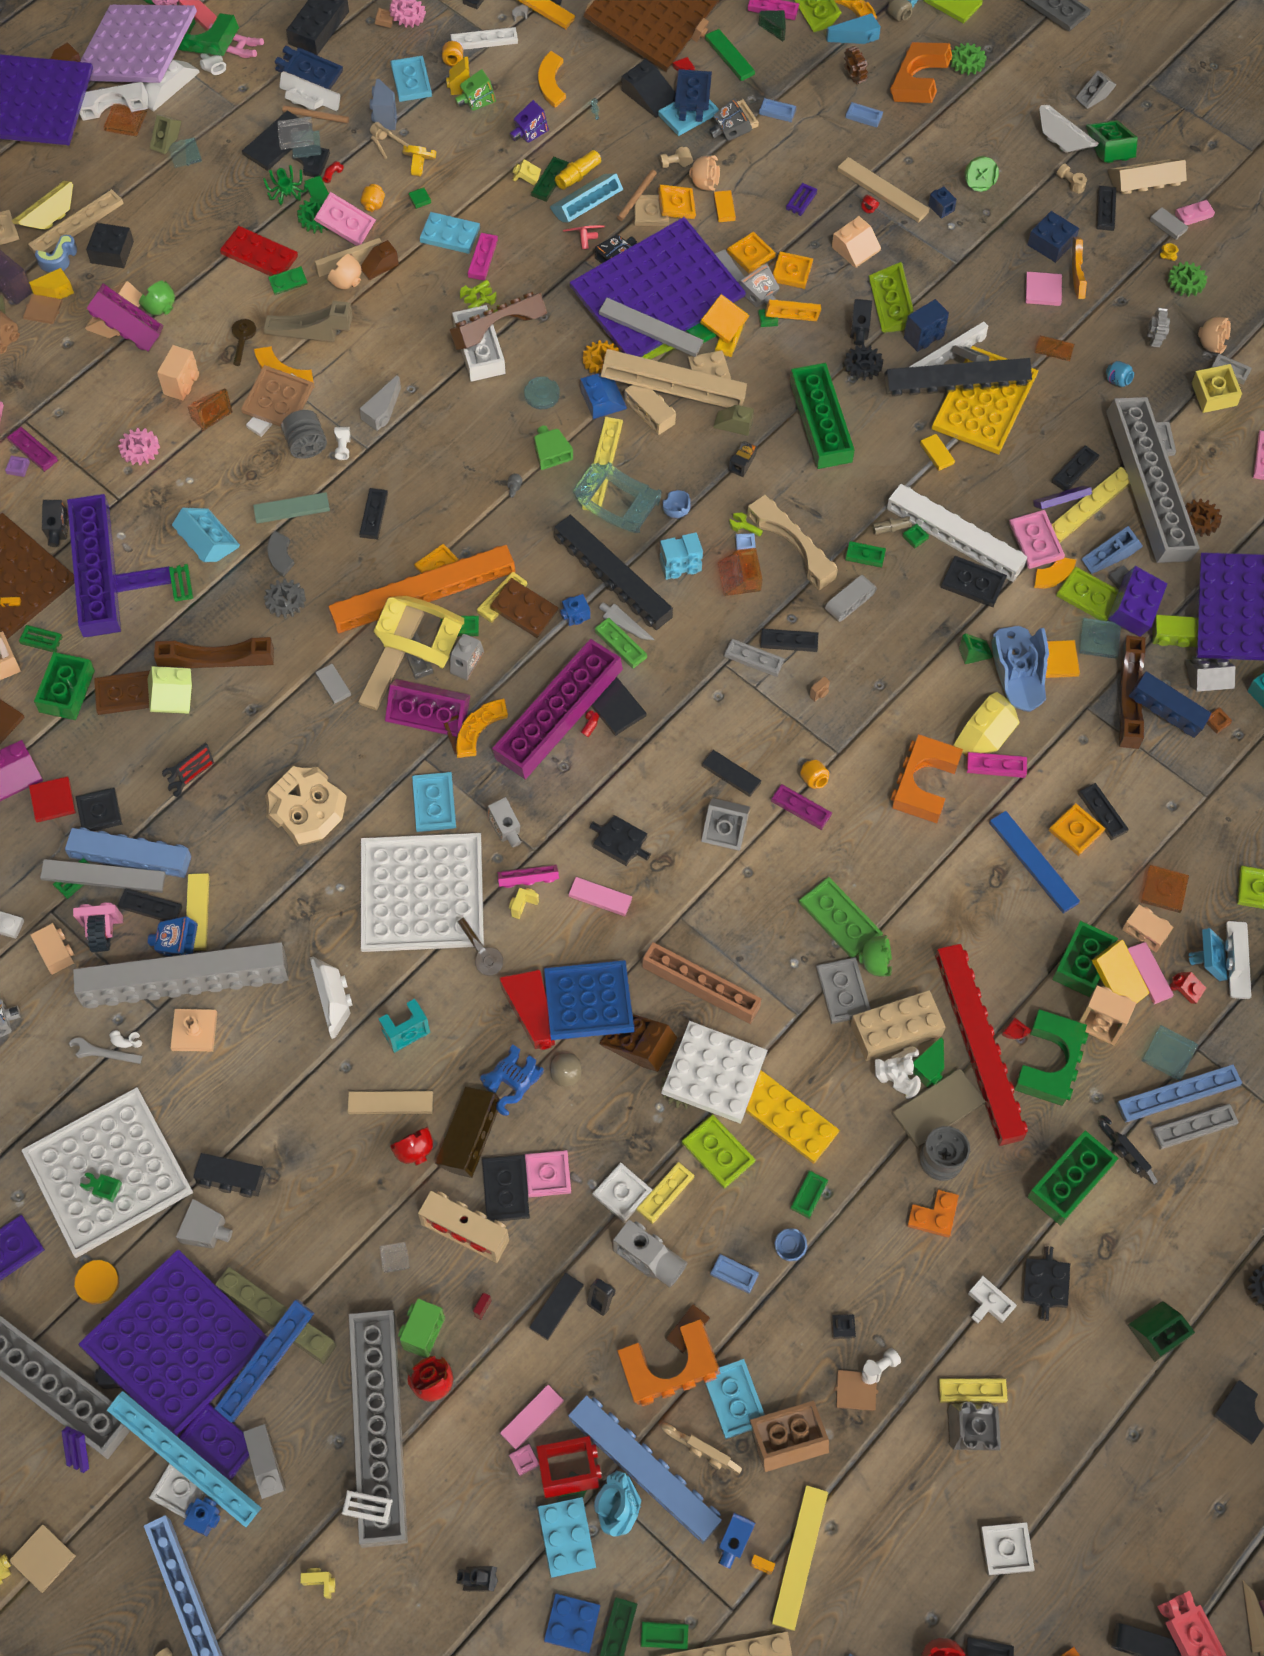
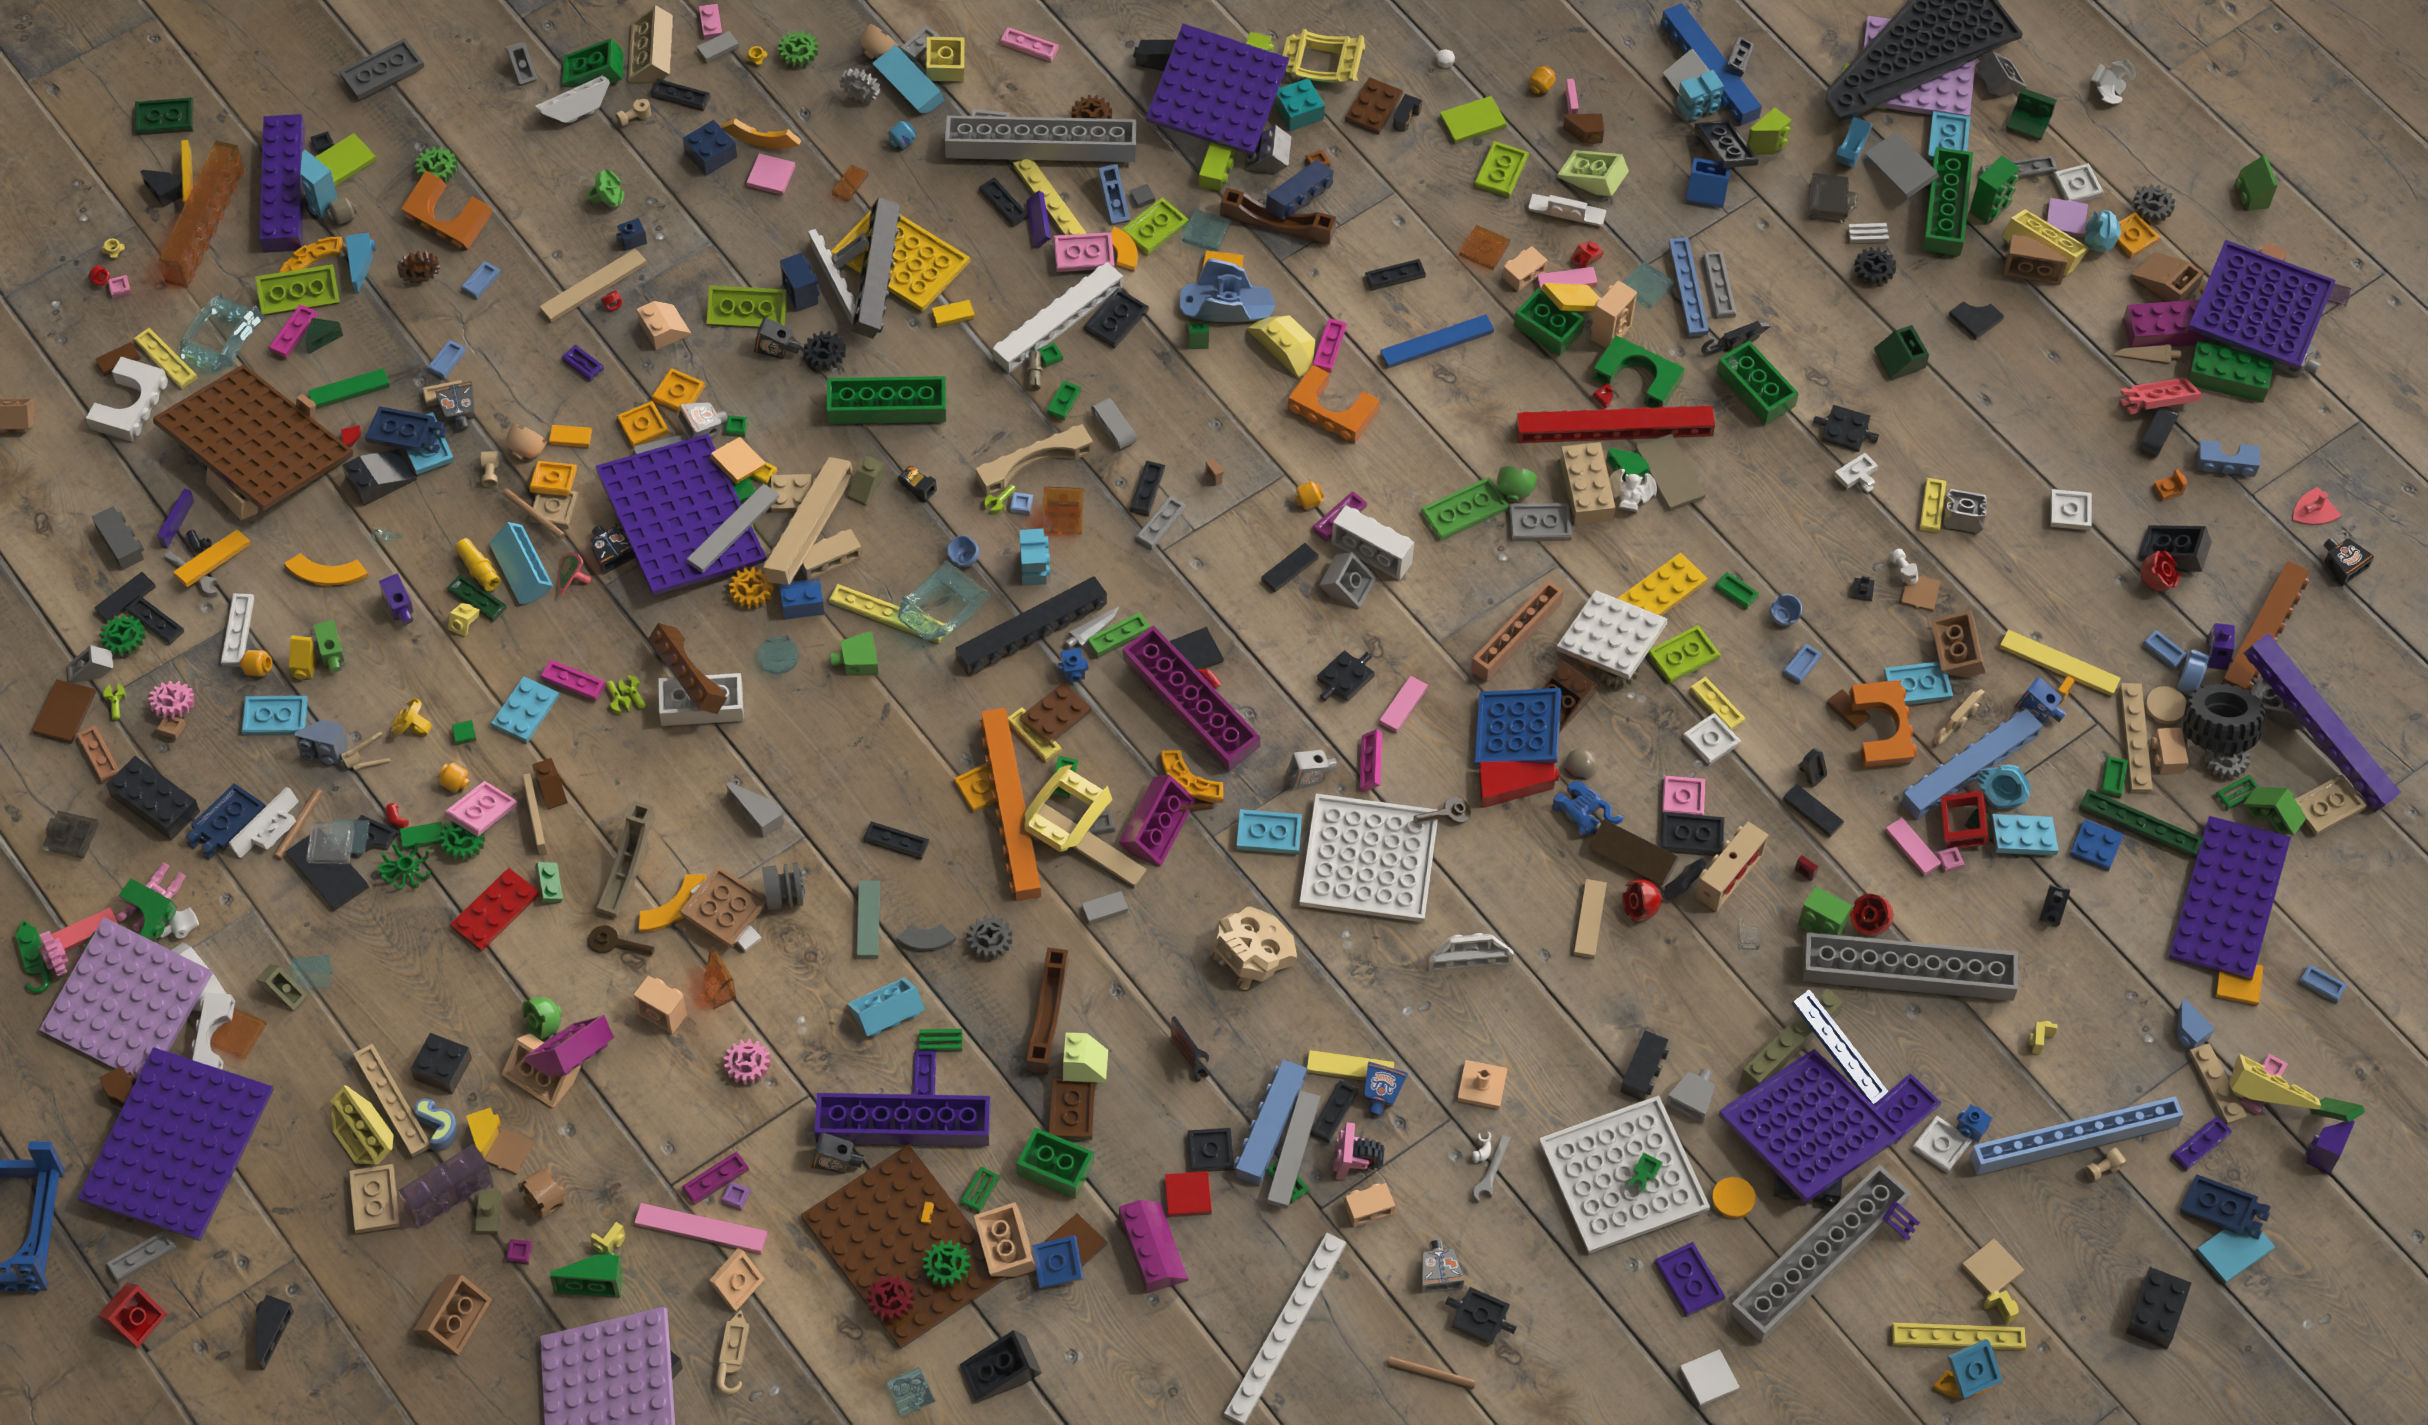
camera: 80 degrees left, 5 degrees down
(181, 975) = (1429, 1081): light grey brick -> none
(184, 1459) = (1922, 1126): medium azure plate -> none
(264, 1461) = (1932, 1065): light grey slope -> none
(342, 437) = (787, 853): white leg -> none
(346, 273) = (560, 817): light nougat cylinder -> none
(386, 1511) = (1981, 990): white tile -> none
(407, 1032) = (1526, 886): teal panel -> none
(437, 1179) = (1682, 882): none -> black tile
(468, 652) = (1105, 772): light grey torso -> none
(514, 484) = (889, 699): dark grey bar -> none
(517, 904) = (1398, 771): light yellow bracket -> none
(653, 1258) = (1779, 722): light grey brick -> none
(770, 835) = (1372, 542): none -> white brick
(793, 310) = (740, 397): light orange plate -> none
(935, 1220) = (1774, 494): orange plate -> none
(954, 1148) = (1720, 471): dark grey wheel -> none
(1077, 829) = (1410, 300): light orange tile -> none
(1137, 601) = (1179, 186): dark purple brick -> none
(1181, 367) = (909, 80): none -> medium azure brick
(1213, 955) = (1563, 226): dark azure tile -> none

